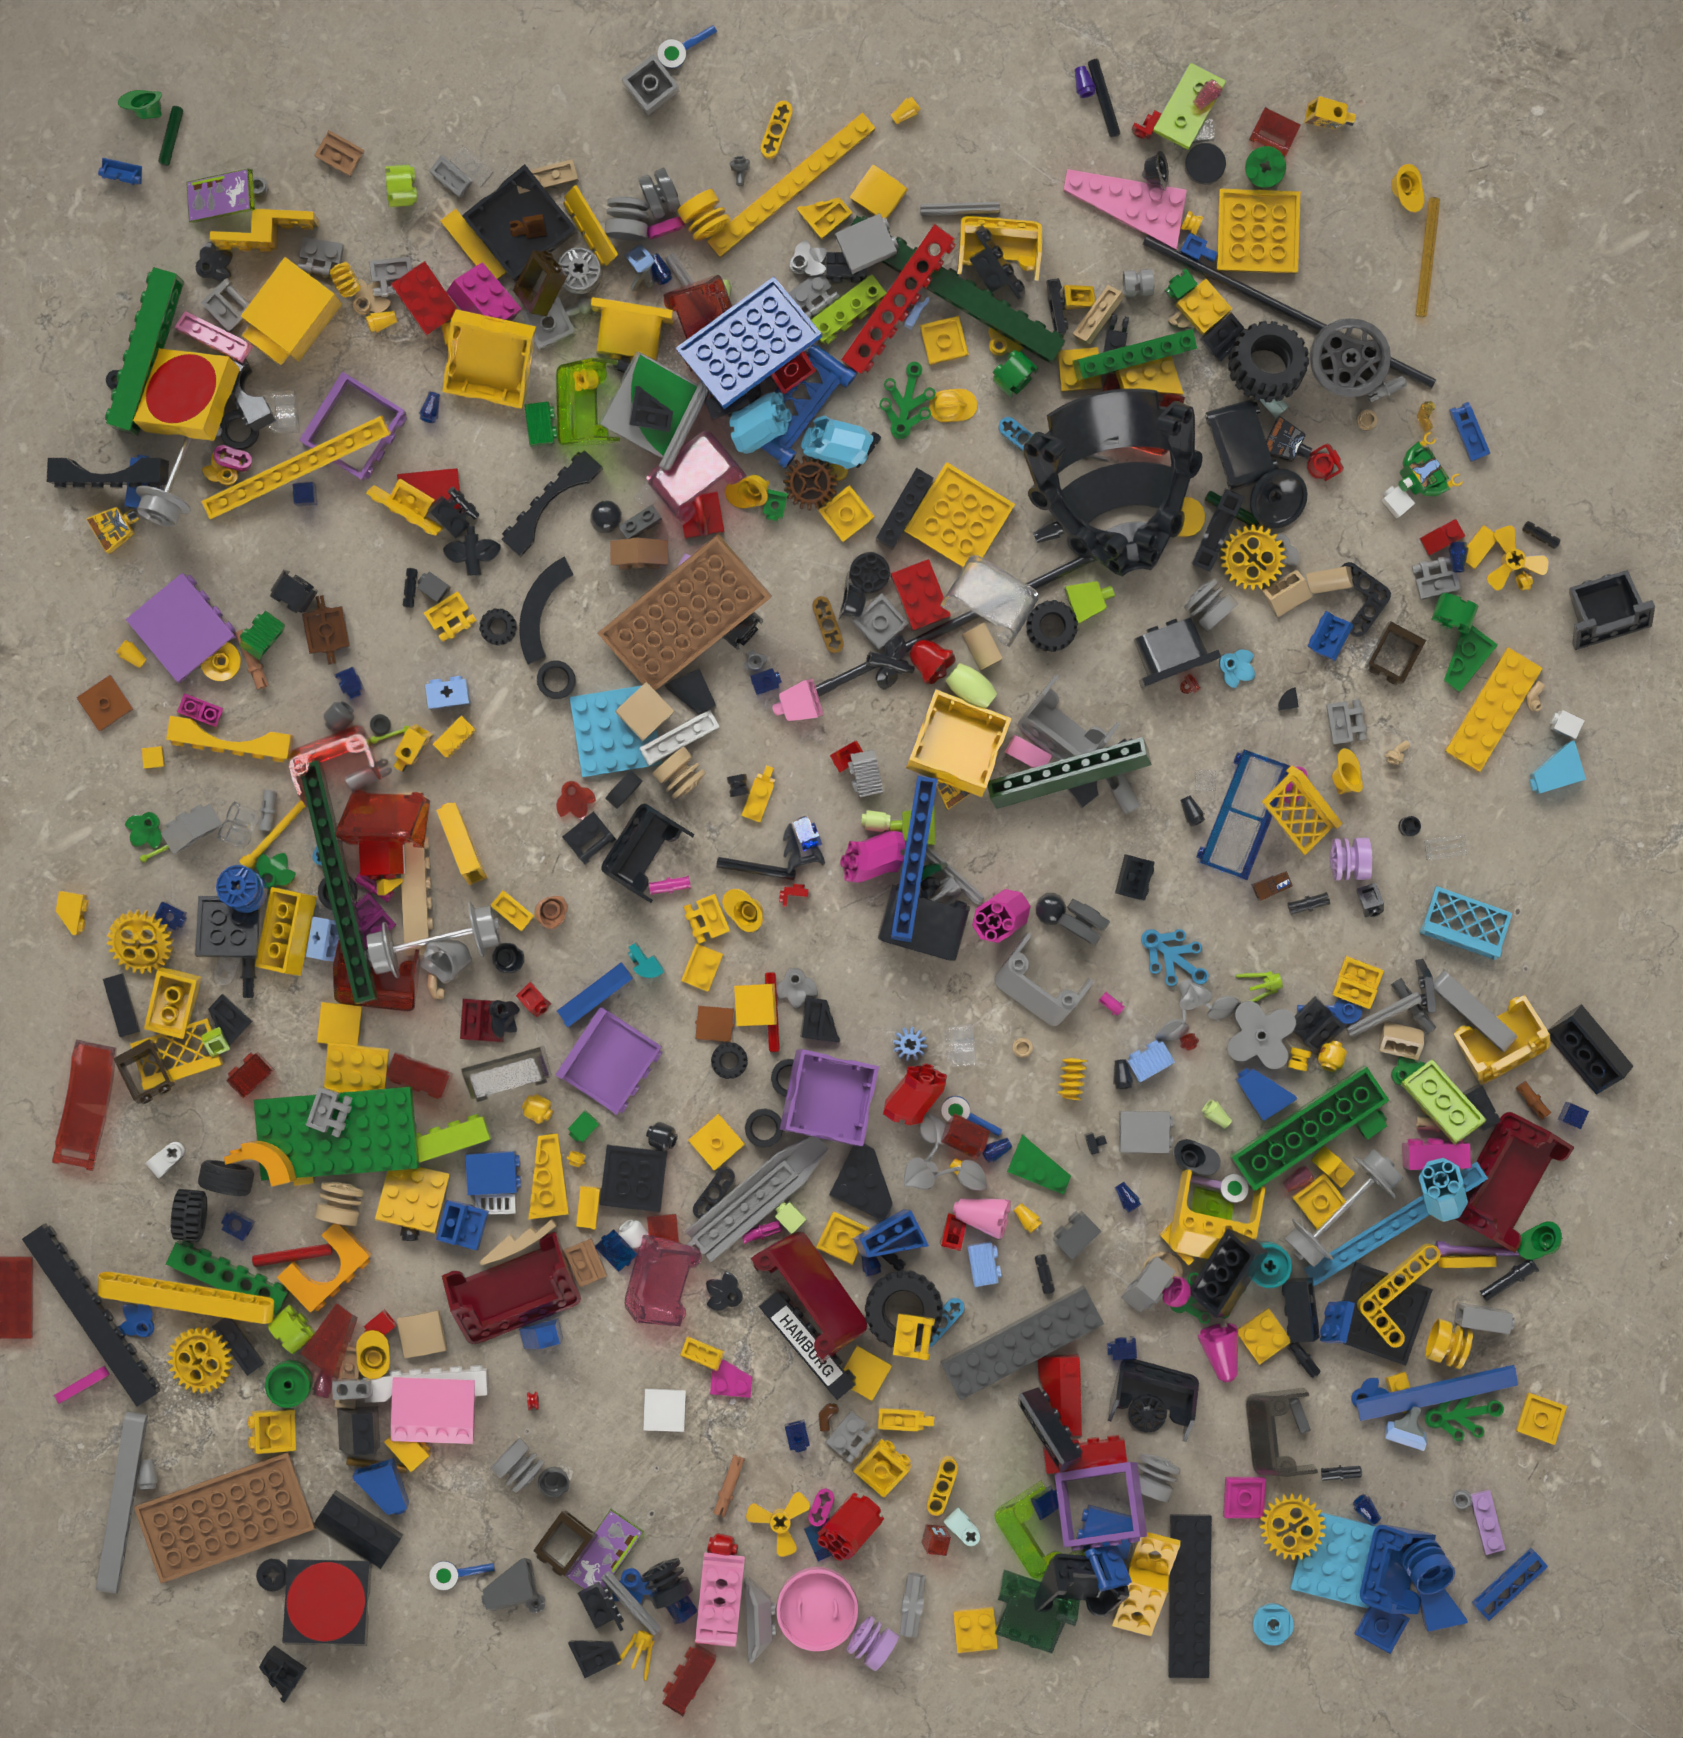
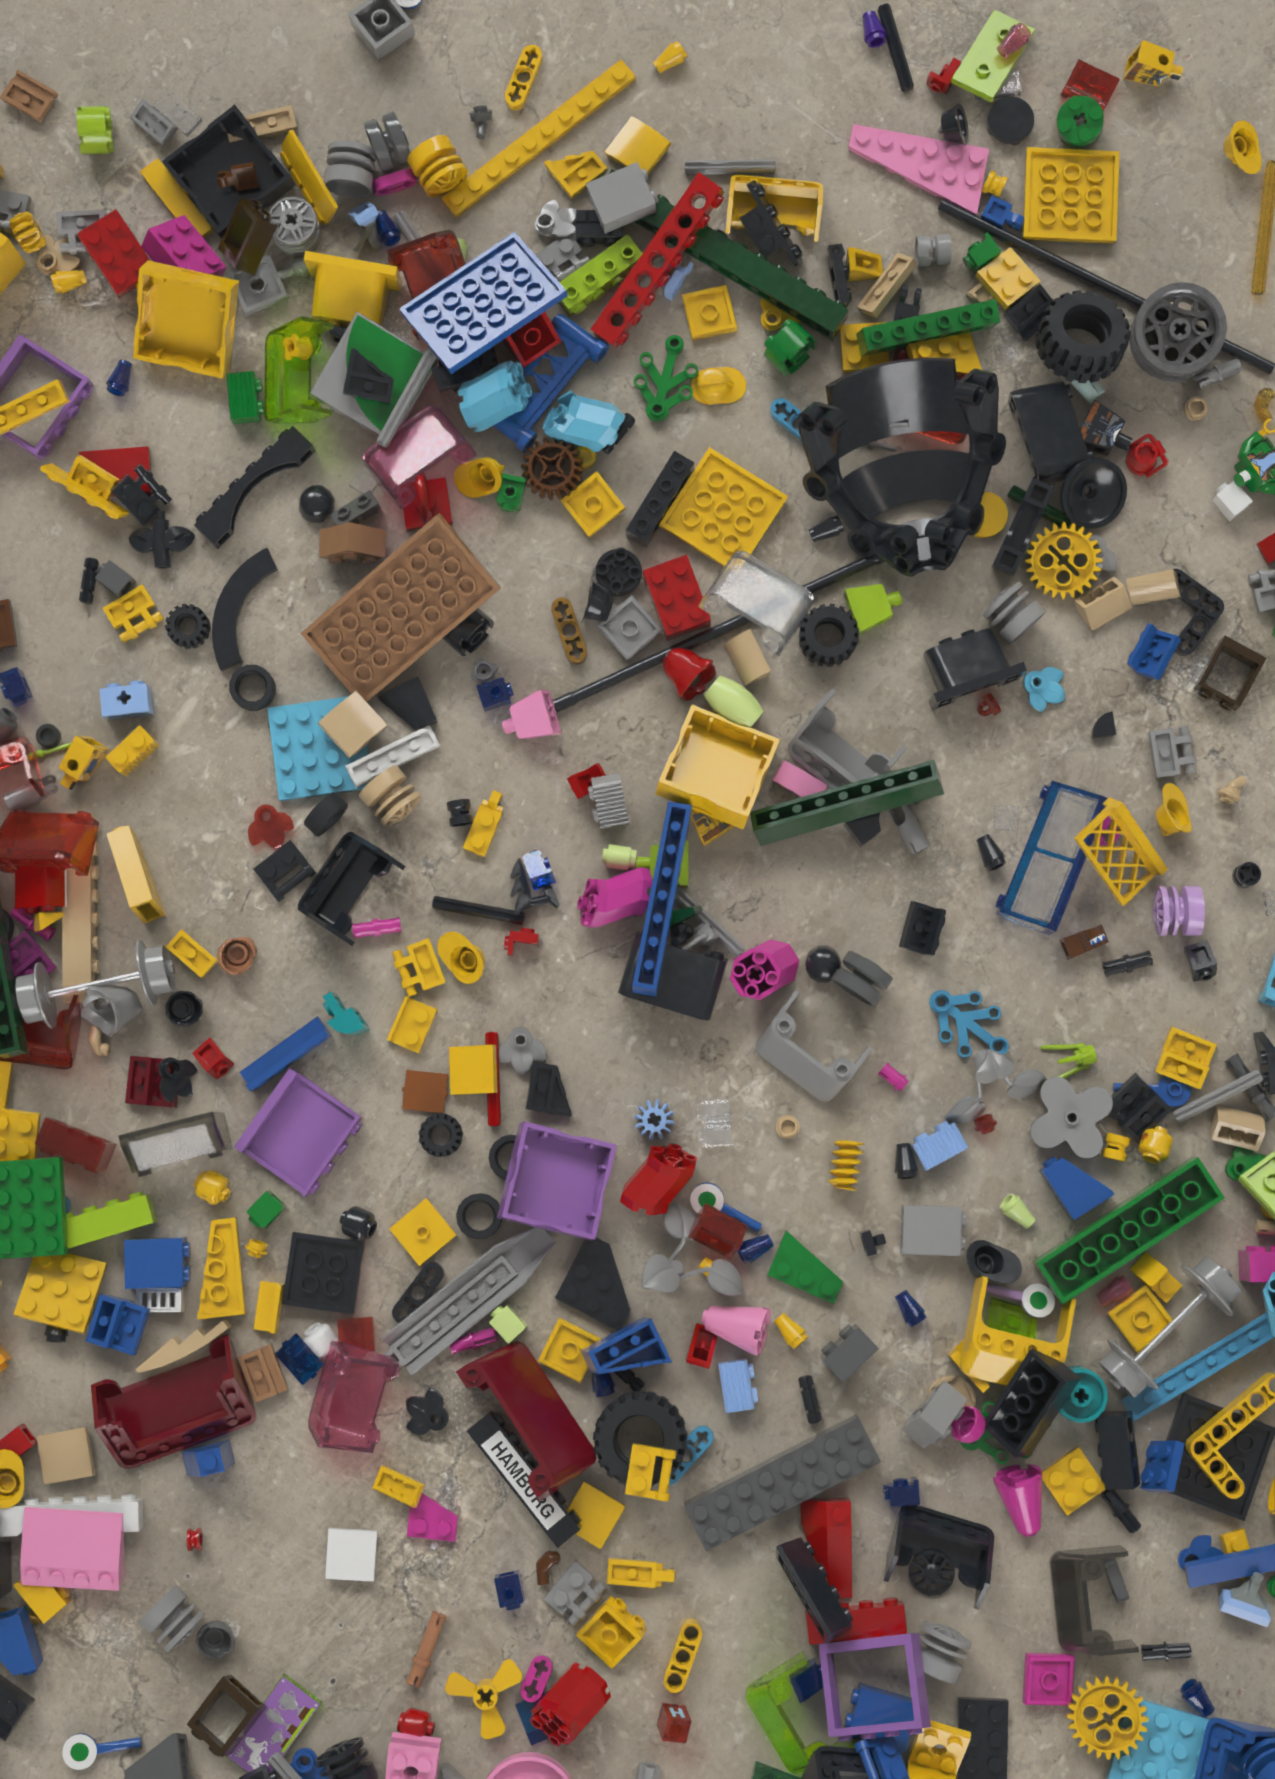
camera: 10 degrees right, 5 degrees down
(890, 662) = (639, 674): black plant -> none
(960, 1524) = (704, 1704): light aqua piece -> none
(1372, 1124) = (1203, 1227): green brick -> none

